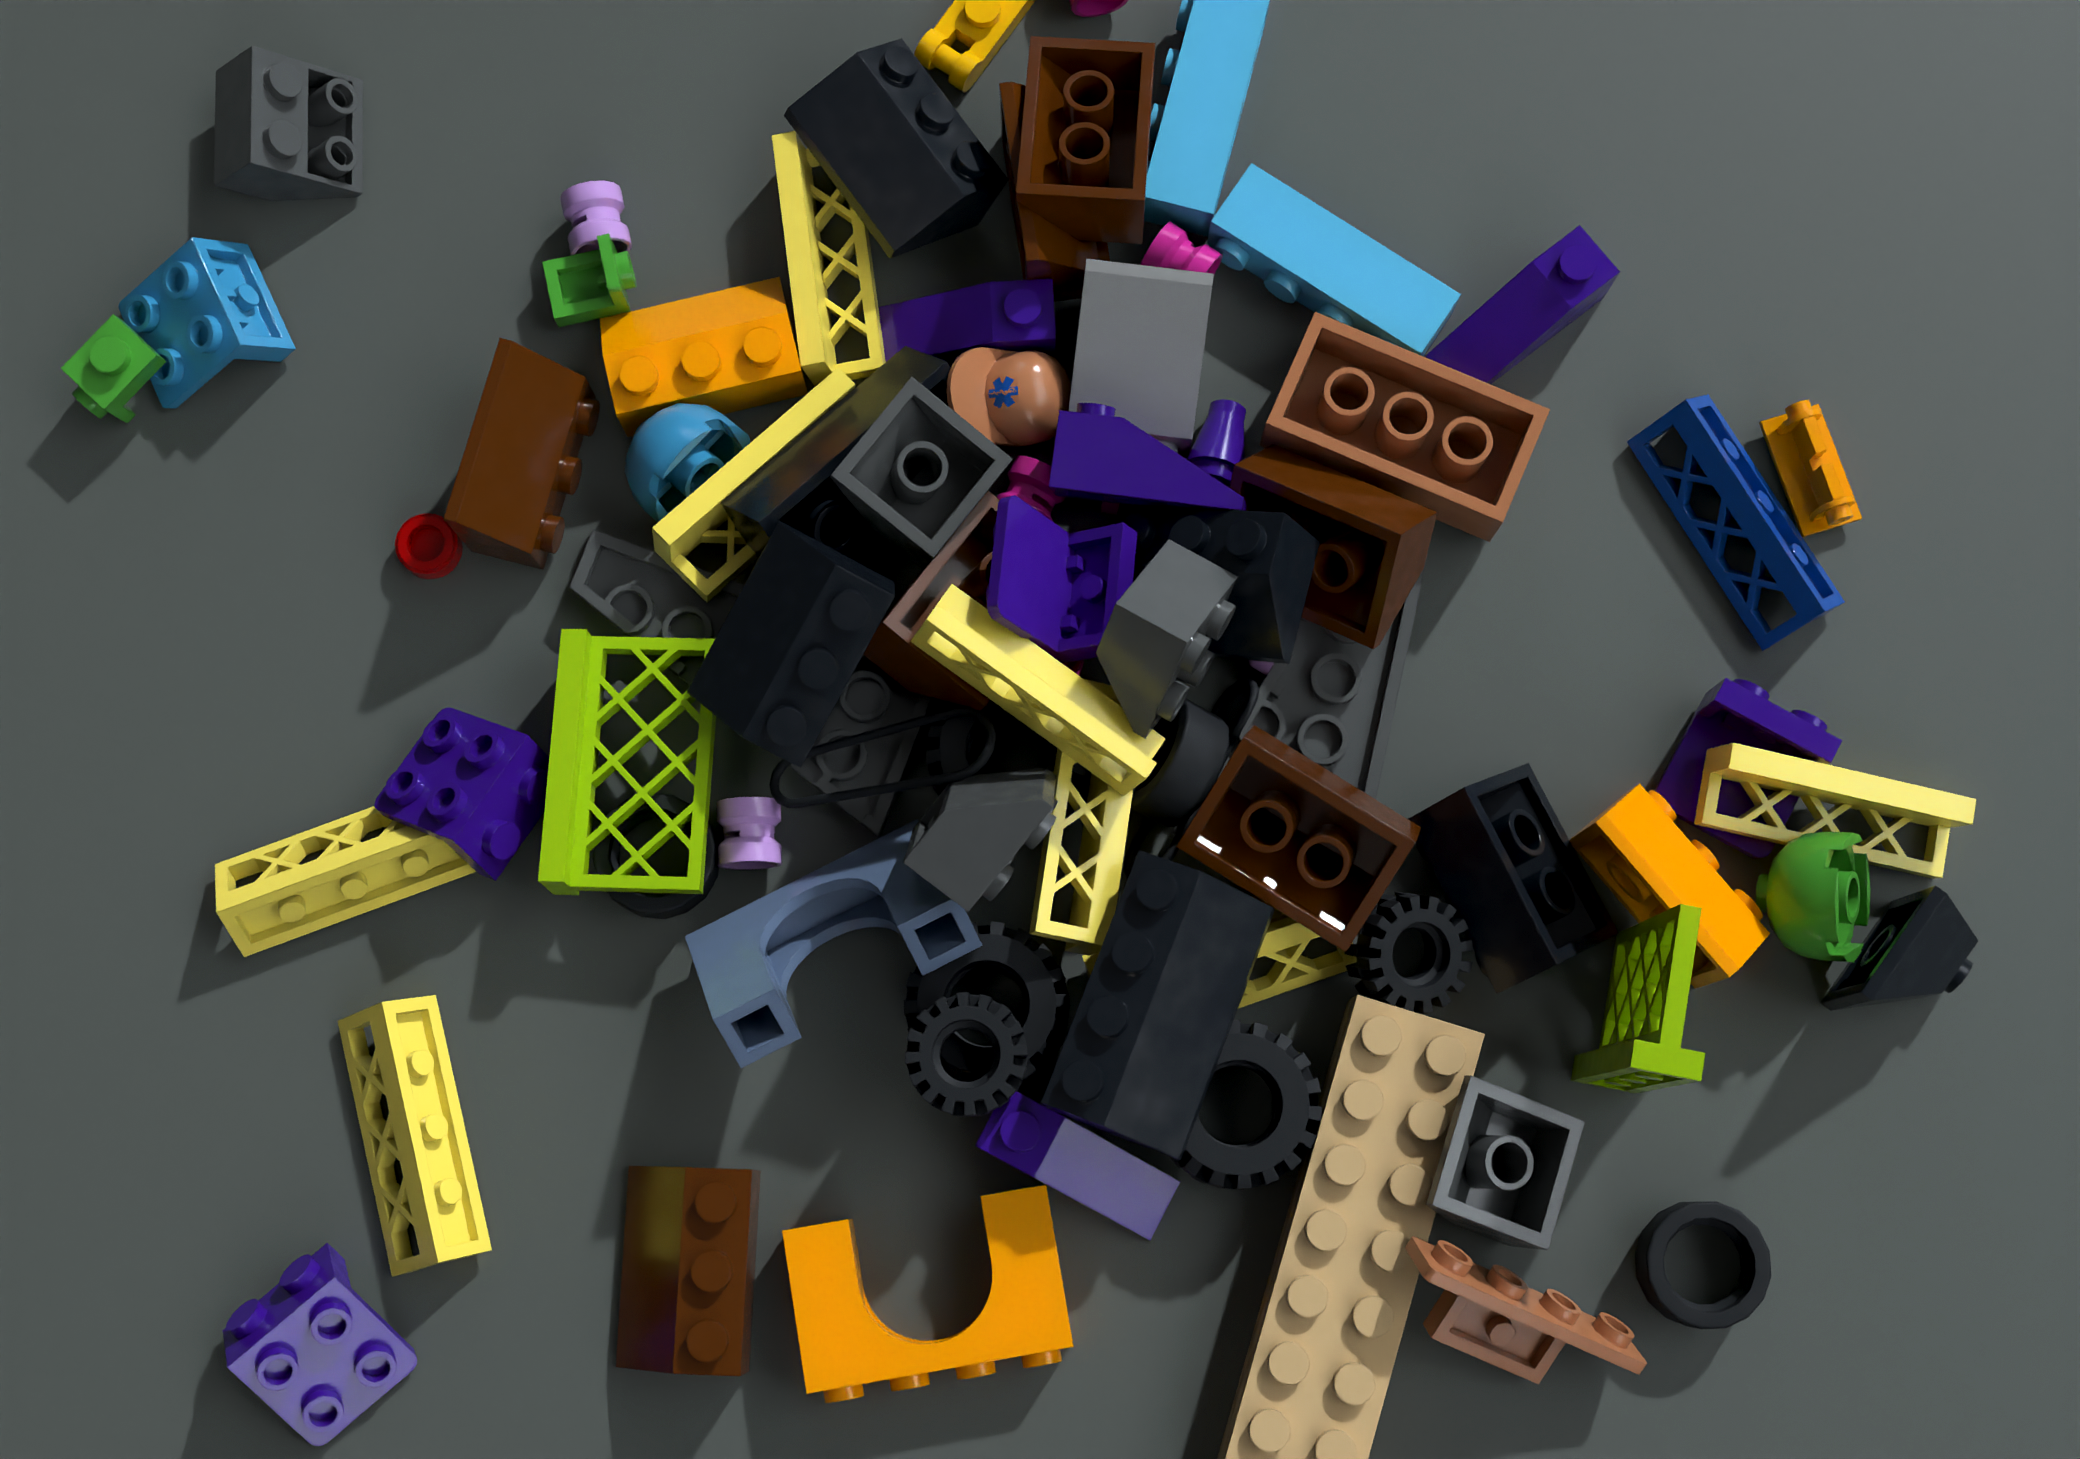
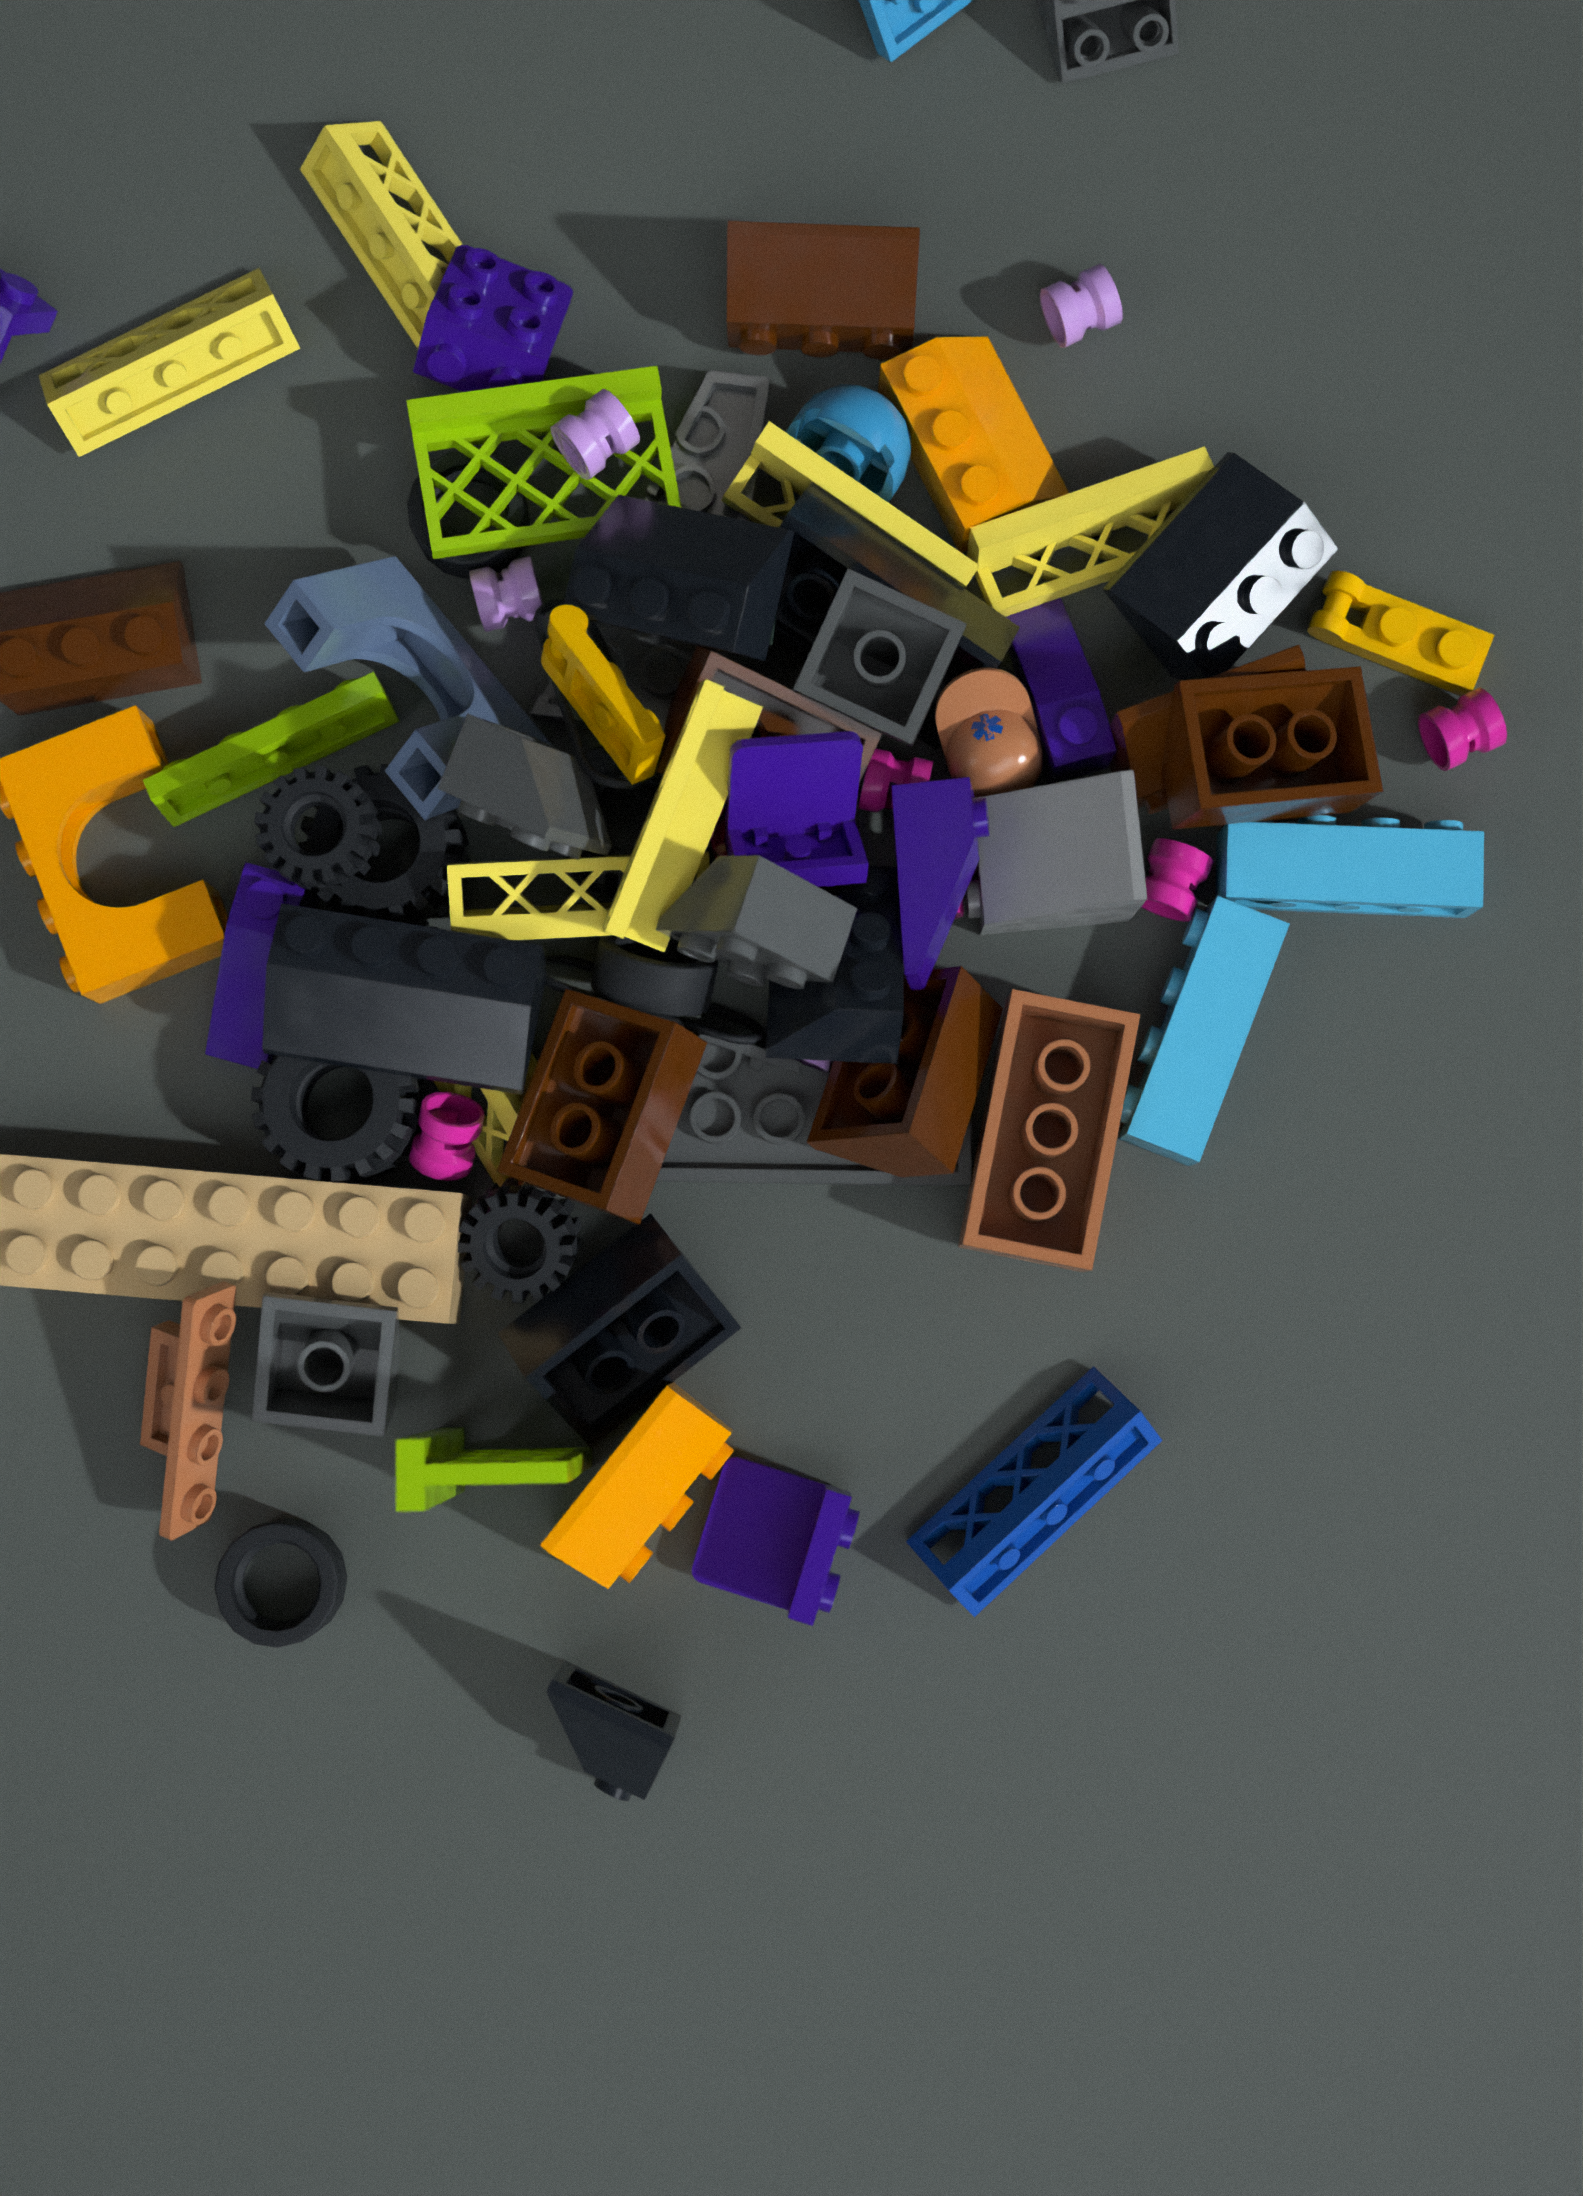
camera: 80 degrees right, 5 degrees up
(428, 546) = (712, 230): red tile -> none
(589, 283) = (1016, 315): bright green bracket -> none
(621, 700) = (595, 434): none -> lavender wheel
(858, 1130) = (271, 749): none -> lime plate
(896, 743) = (601, 695): none -> yellow plate
(1220, 440) = (991, 956): dark purple cone -> none
(1285, 1001) = (445, 1143): none -> dark pink wheel
(1529, 309) = (1199, 1234): dark purple slope -> none
(1810, 469) = (1106, 1558): light orange hinge -> none
(1817, 895) = (658, 1634): bright green cylinder -> none
(1837, 786) = (771, 1639): light yellow fence -> none

